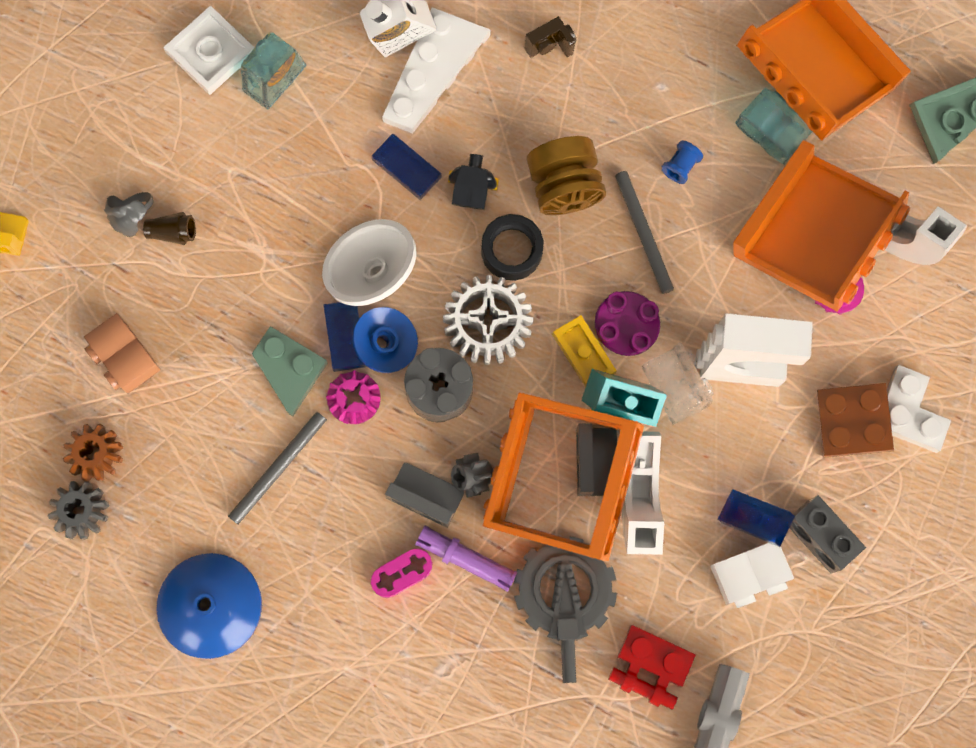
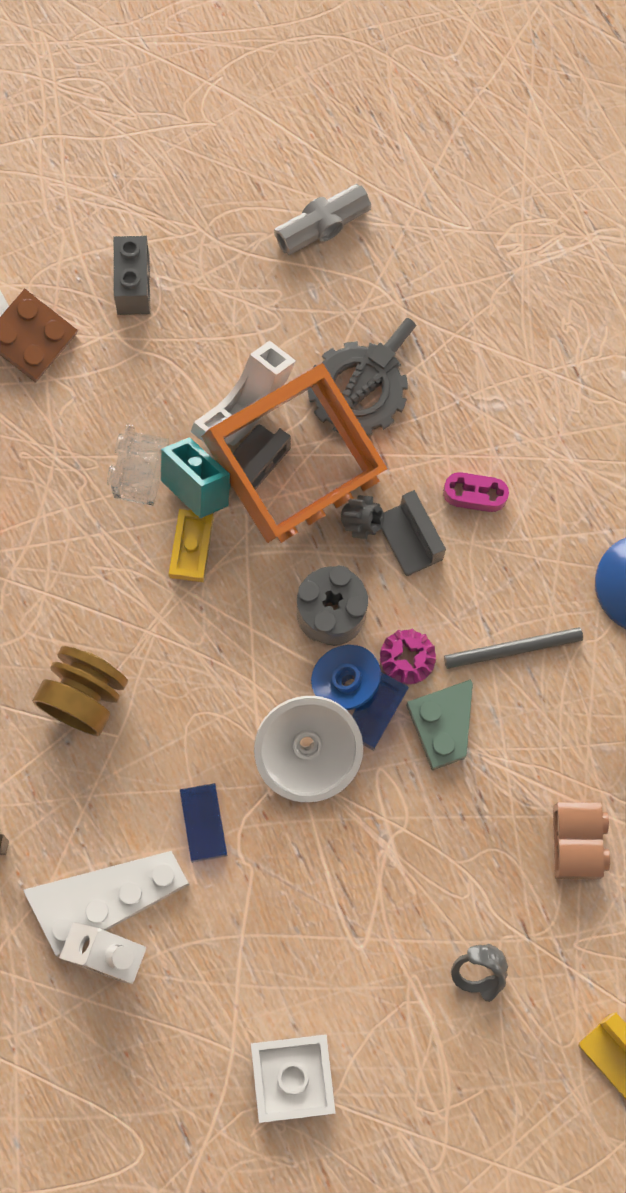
camera: 140 degrees left, 5 degrees down
(172, 228) = (454, 923): dark brown cone -> none
(273, 66) = (252, 1005): clear light blue torso -> none
(465, 558) = (422, 474): medium lavender pin -> none
(472, 184) = (165, 753): black piece -> none
(474, 318) = (237, 641): white gear -> none
(505, 223) = (165, 650): black tyre -> none
(627, 323) = (135, 542): magenta dish -> none
(644, 232) = (53, 607): dark grey bar -> none
(656, 657) = (331, 295): red plate -> none
(751, 573) = (209, 291): white brick -> none
(754, 349) = (68, 417): white arch -> none
(756, 518) = (172, 321): clear blue plate -> none

